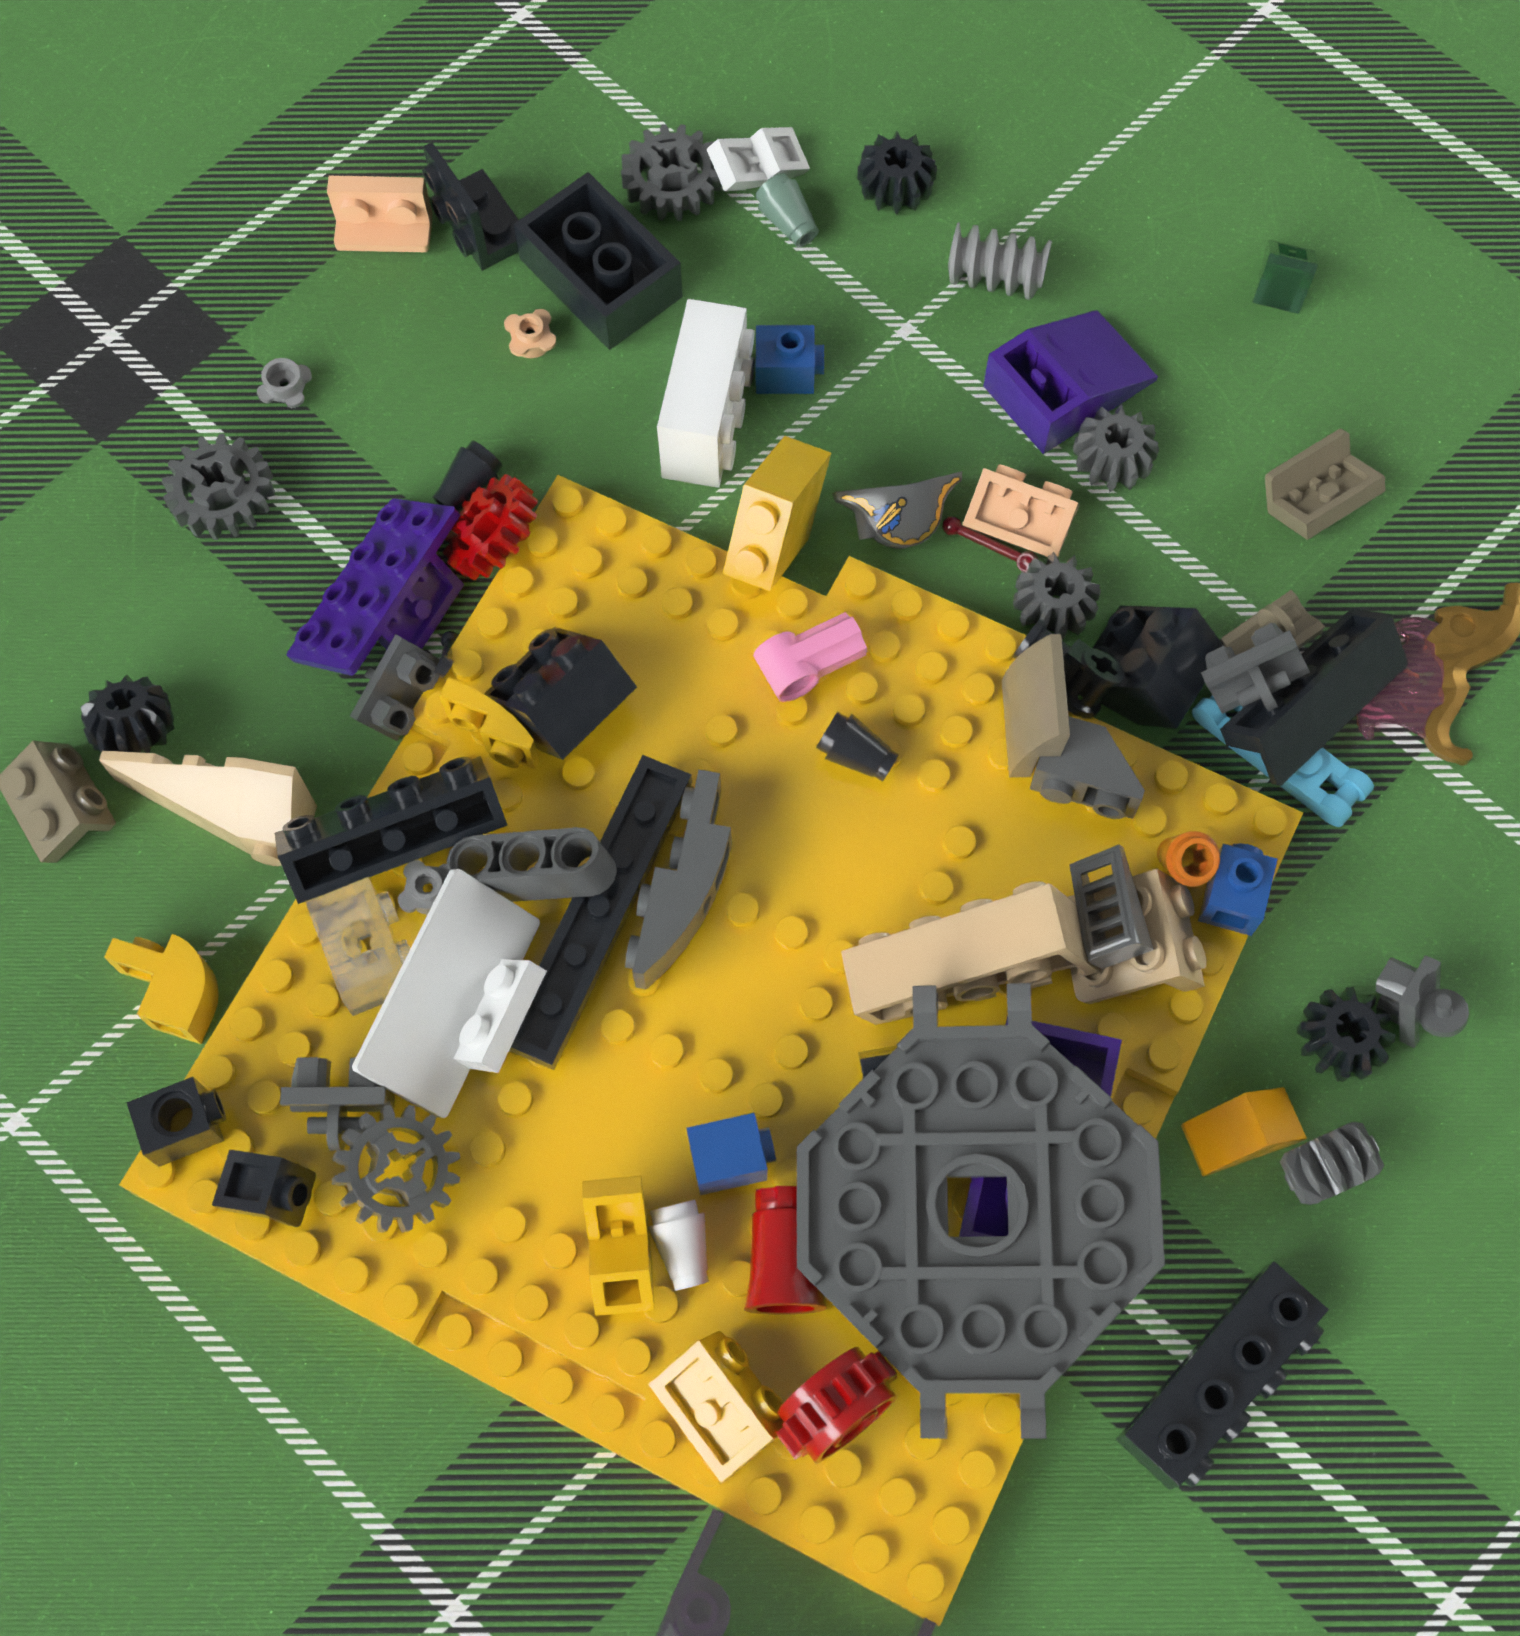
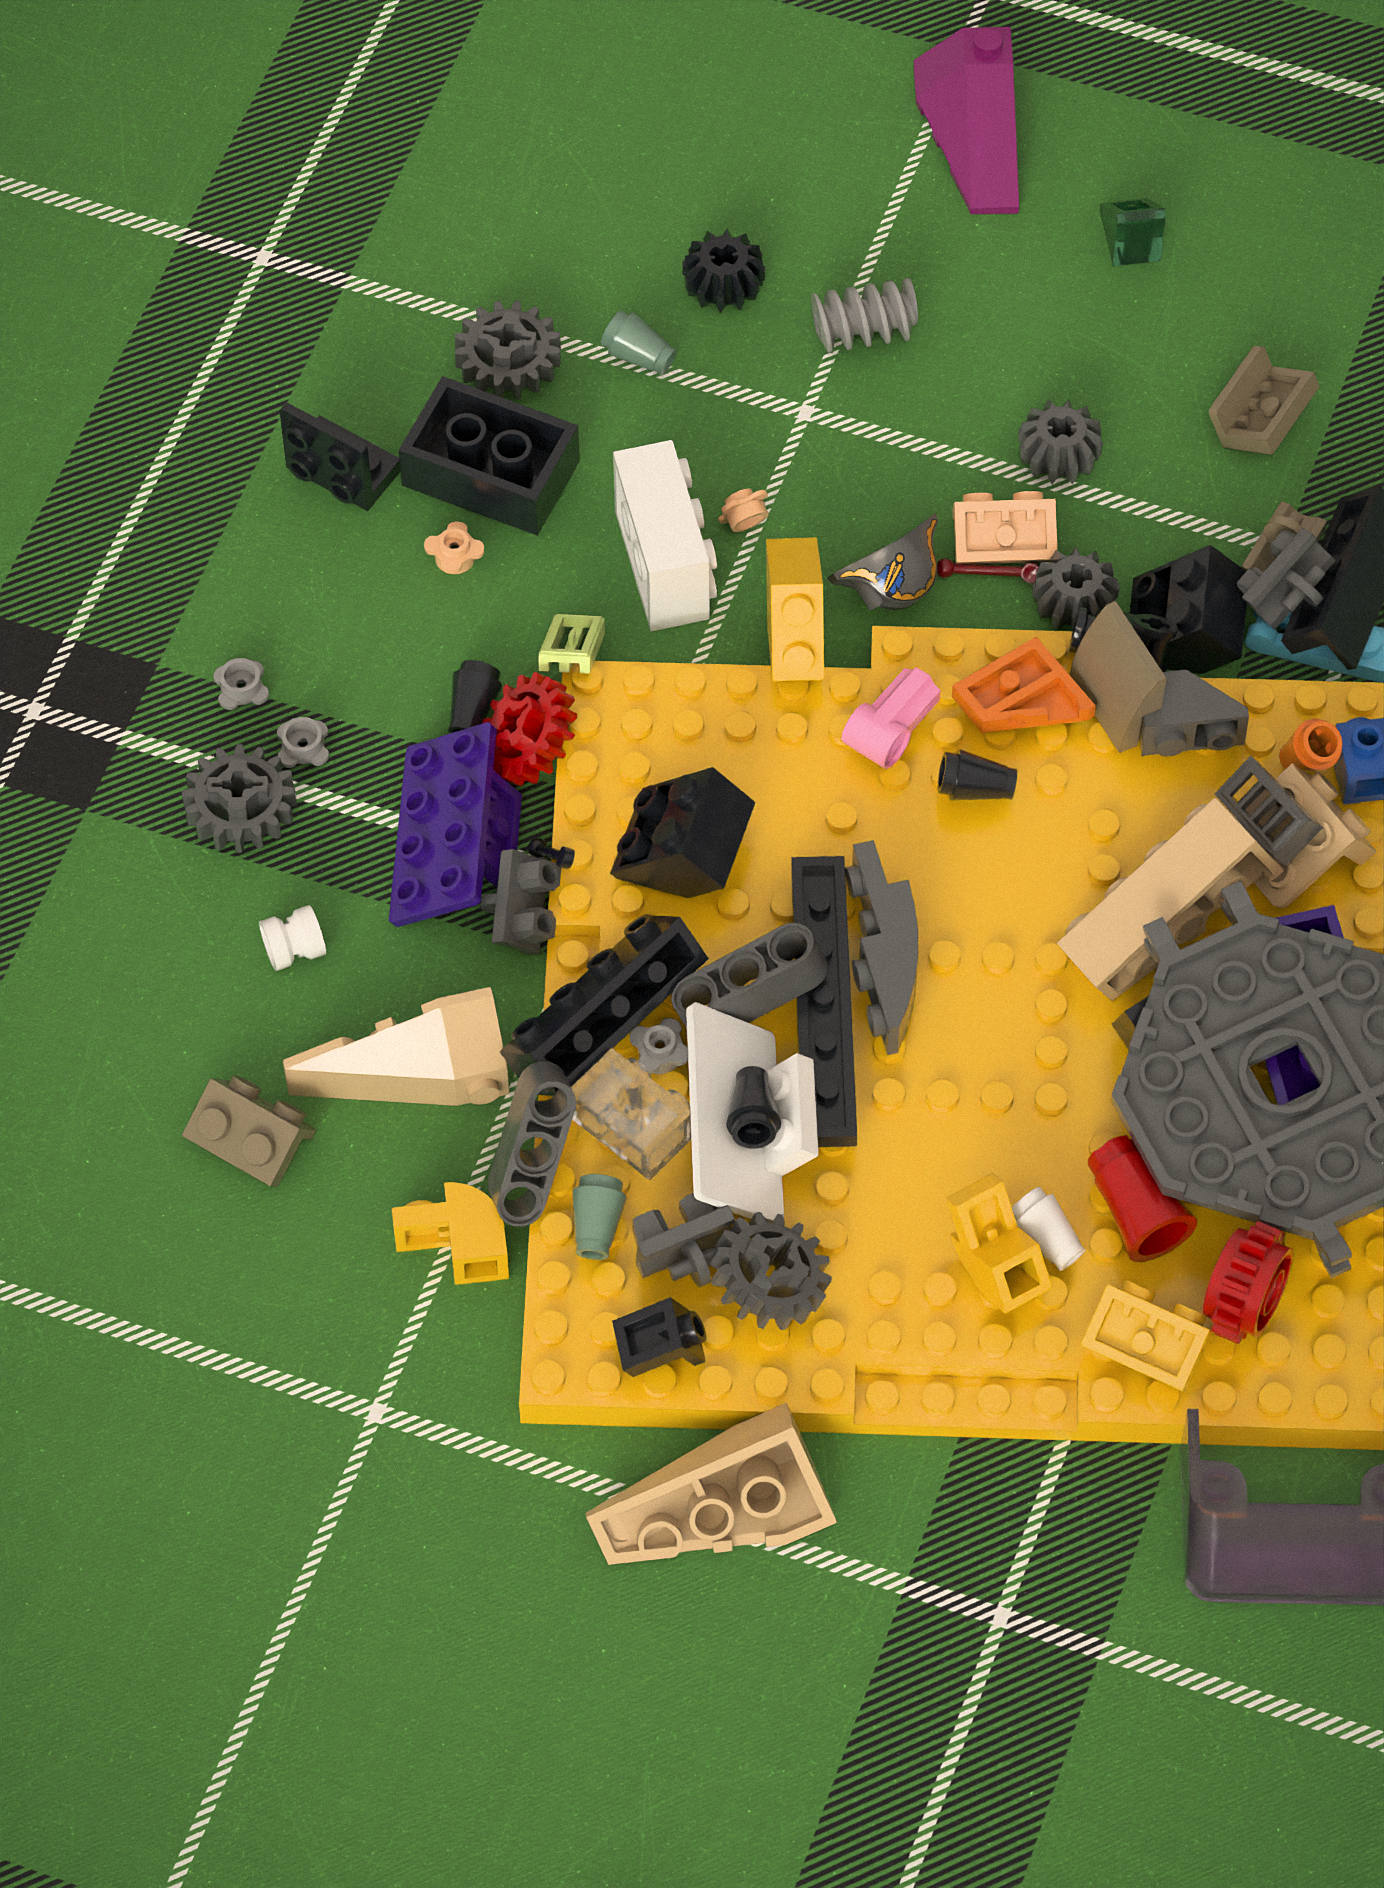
camera: 25 degrees left, 10 degrees down
(127, 716) = (281, 1026): black gear -> none
(154, 1113) = (546, 1338): black brick -> none
(191, 635) = (297, 936): none -> white wheel
(250, 937) = (538, 1166): none -> dark grey beam
(274, 1359) = (726, 1493): none -> tan wedge
(276, 1033) = (597, 1212): none -> sand green cone
(302, 446) = (299, 731): none -> light grey plate
(380, 213) = (249, 493): light nougat bracket -> none
(458, 1000) = (753, 1112): none -> black cone
(501, 732) = (656, 887): yellow slope -> none
(582, 467) = (566, 657): none -> yellowish green tile
(730, 1153) = (1049, 1139): blue brick -> none
(754, 160) = (585, 306): white slope -> none
(787, 359) = (717, 473): blue brick -> none
(798, 398) = (744, 509): none -> light nougat plate
(945, 680) = (1022, 692): none -> orange wing
(1062, 375) = (980, 397): dark purple slope -> none
(1192, 114) = (970, 106): none -> magenta wedge

